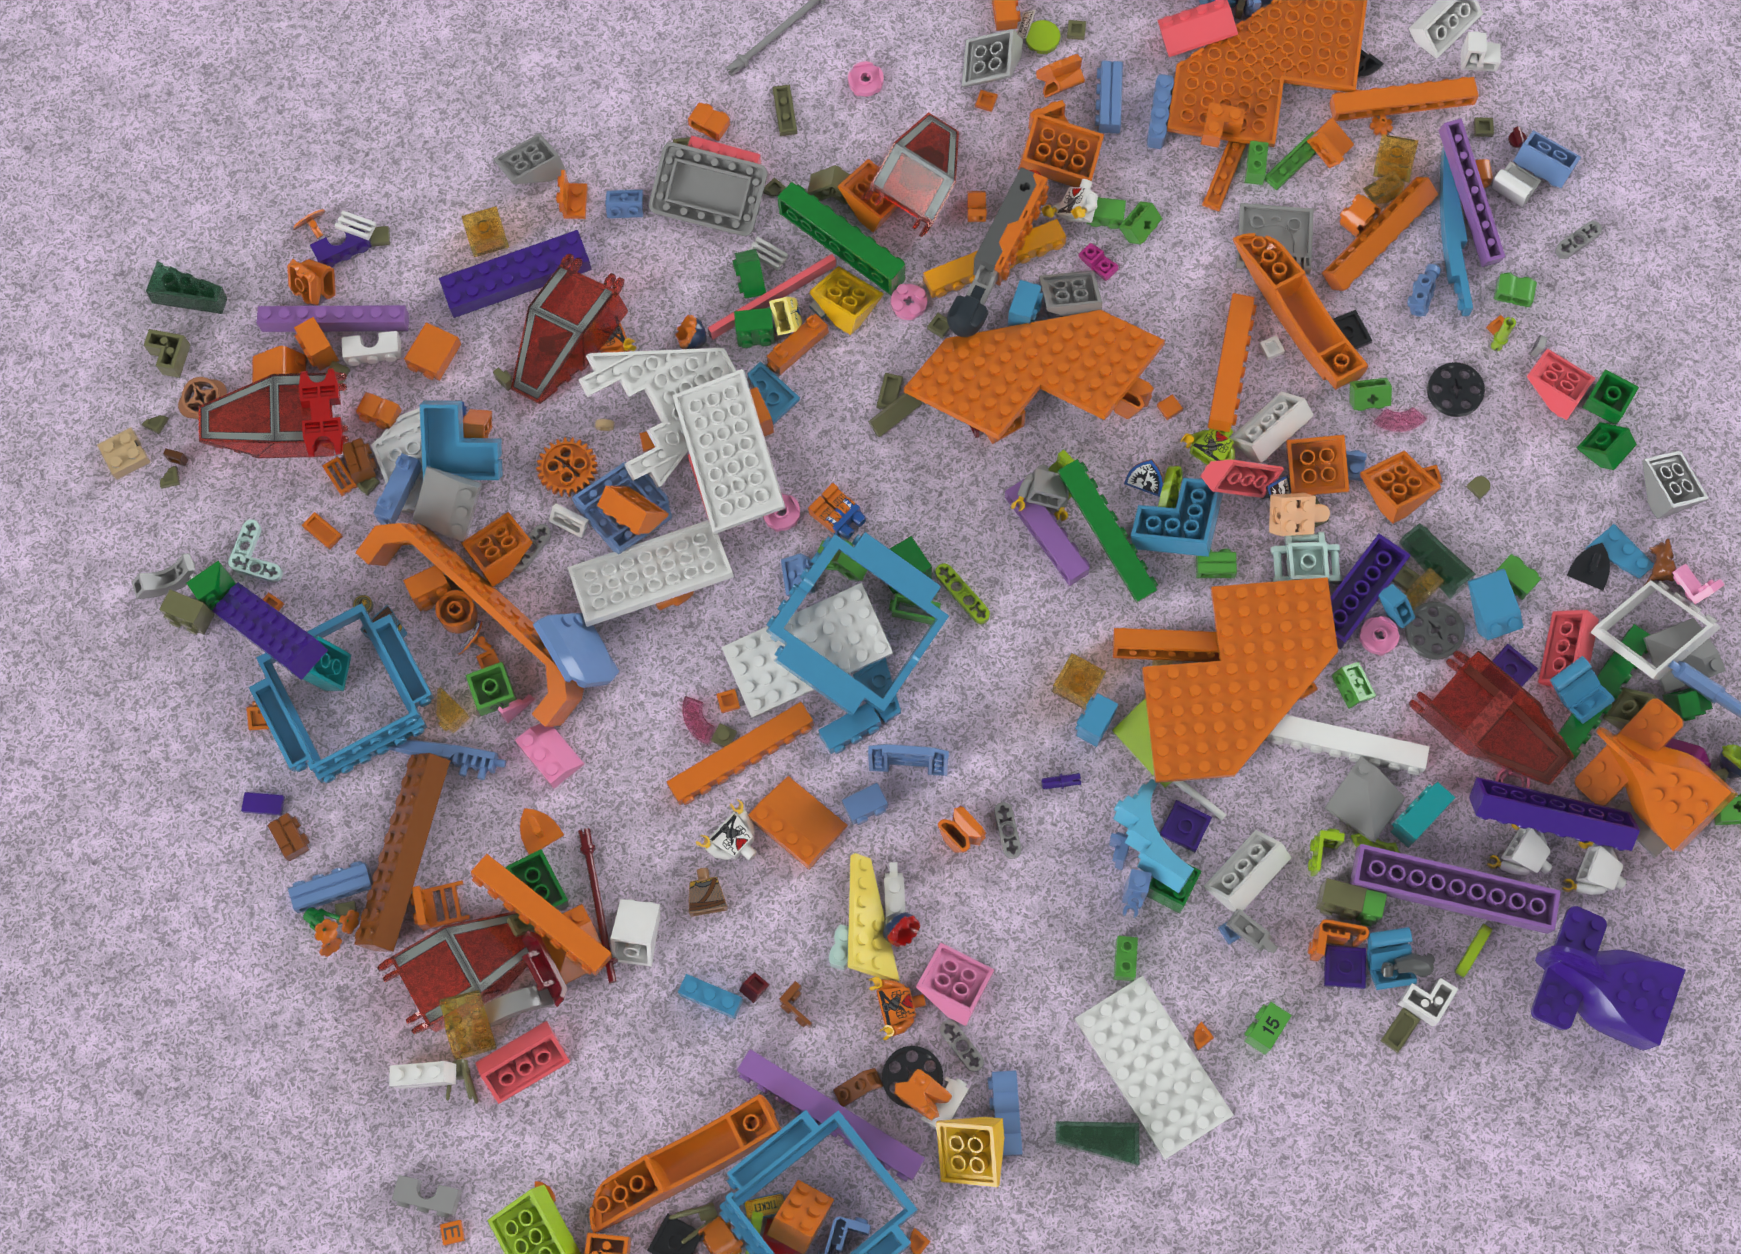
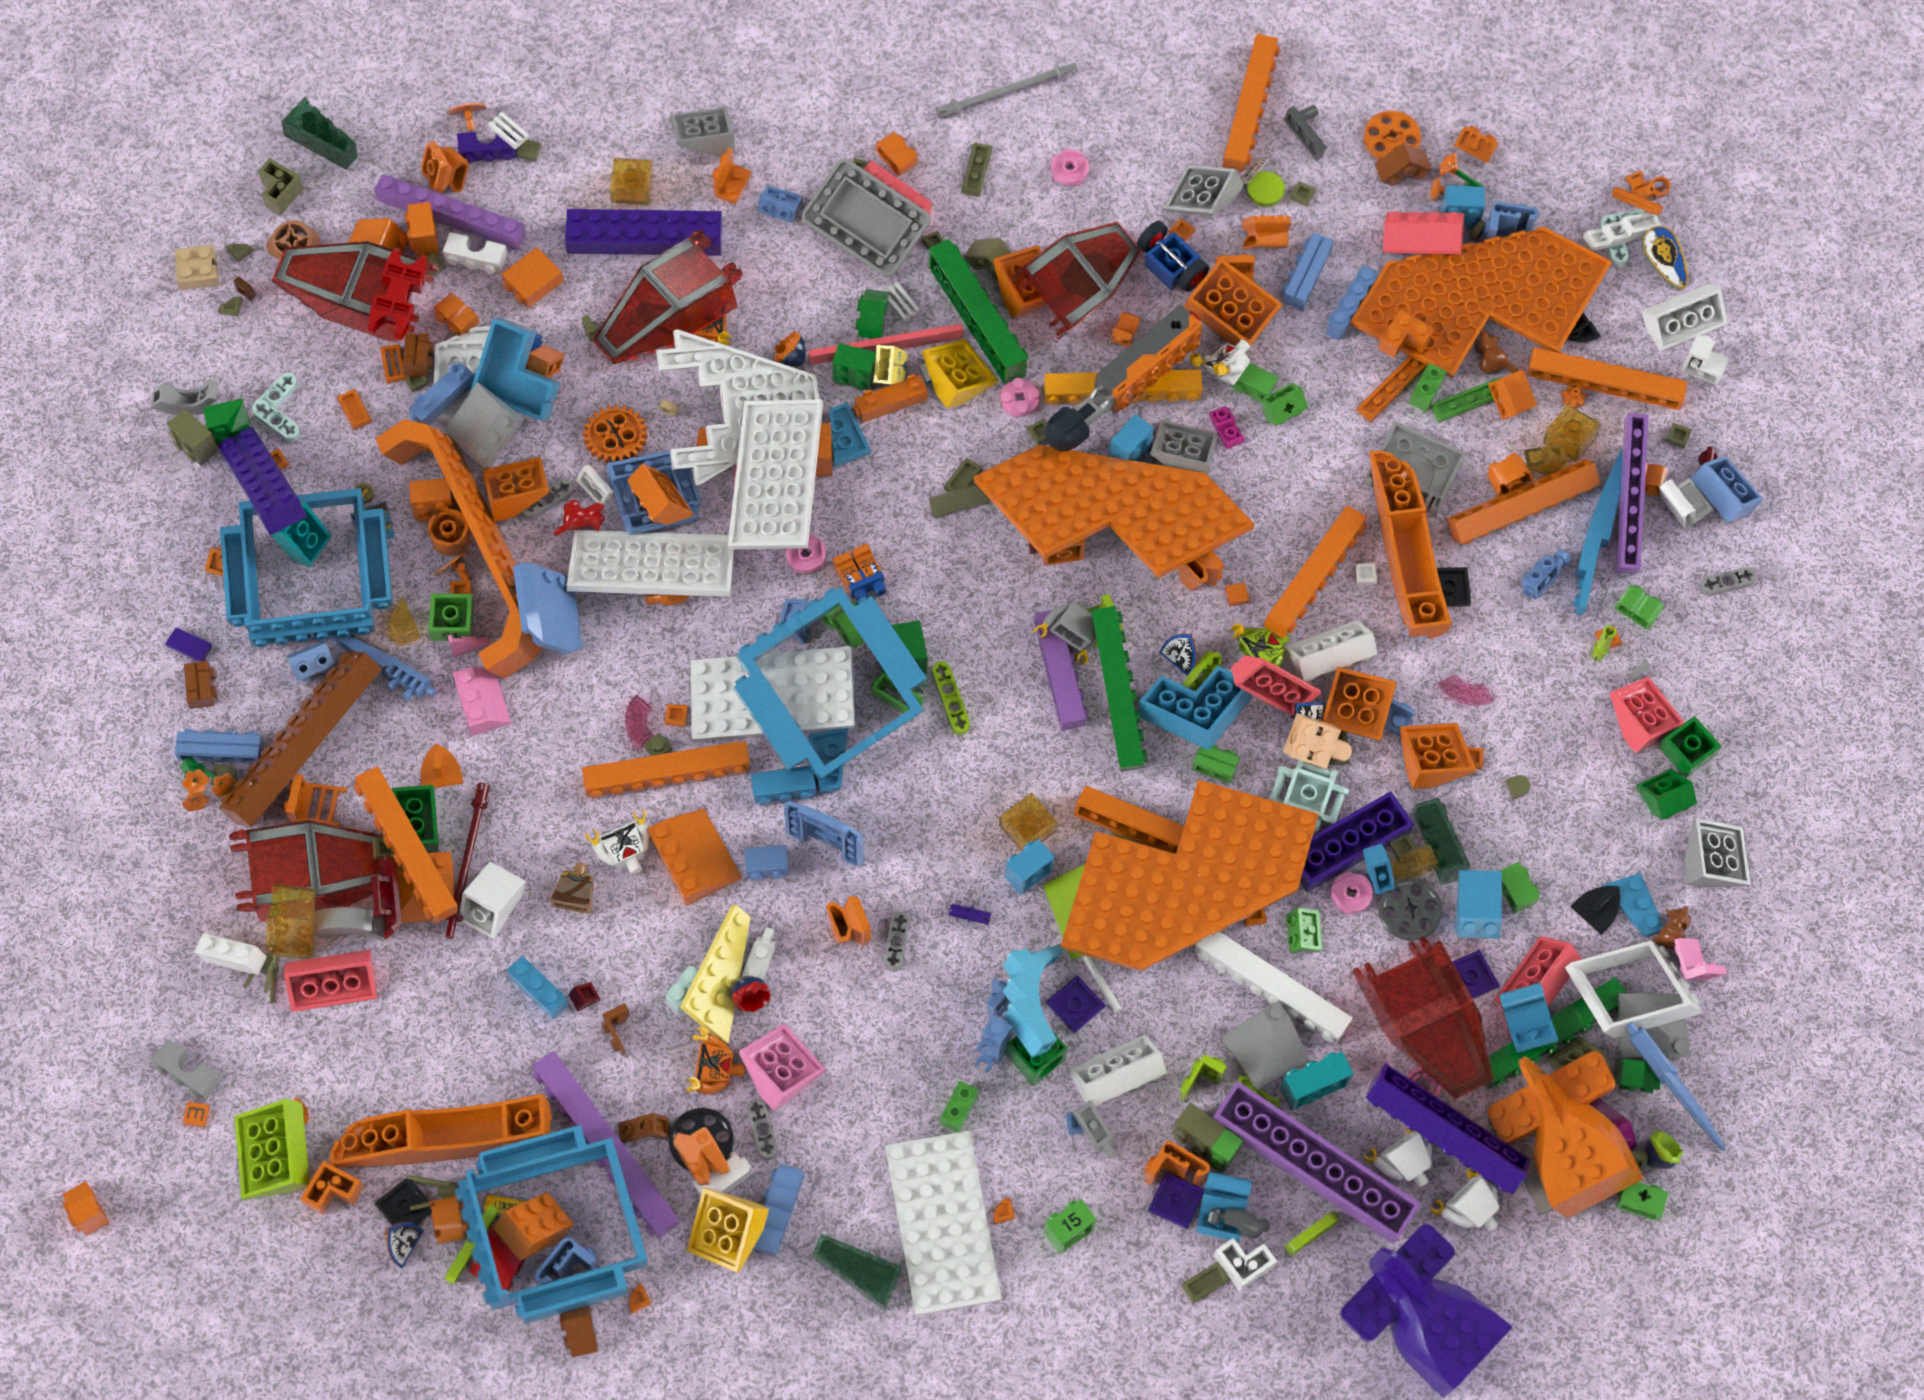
camera: 15 degrees right, 5 degrees down
(381, 777) = (311, 661): none -> medium blue brick
(566, 555) = (578, 517): none -> red animal
(990, 128) = (1171, 258): none -> brick
(1300, 115) = (1494, 357): none -> dark orange animal
(1370, 394) = (1454, 652): bright green brick -> none
(1449, 394) = (1542, 689): black wedge -> none

